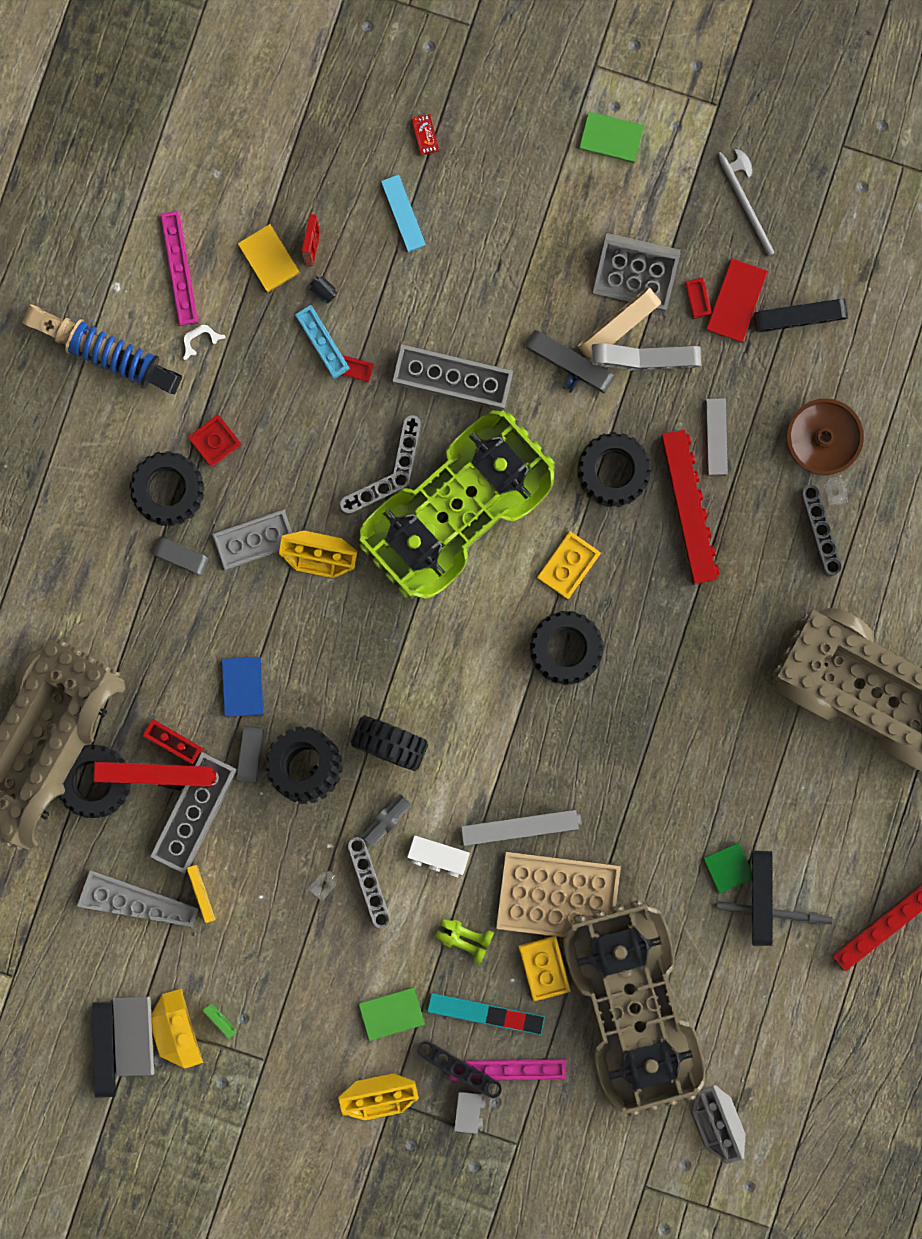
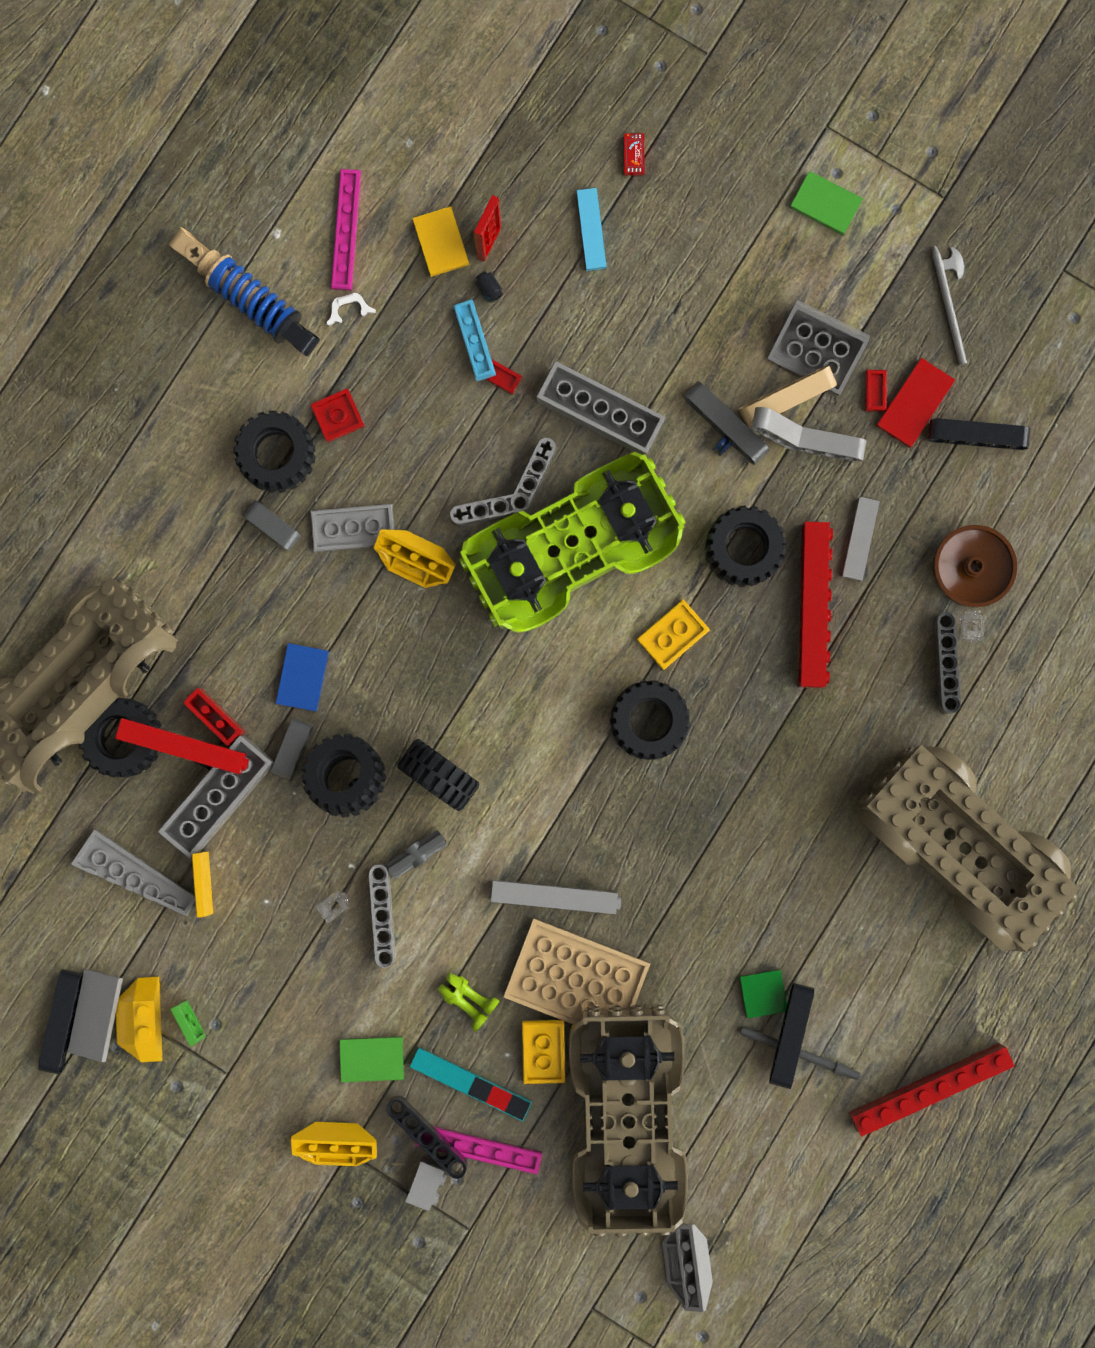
camera: 15 degrees right, 0 degrees up
(438, 856) = (461, 905): white brick -> none

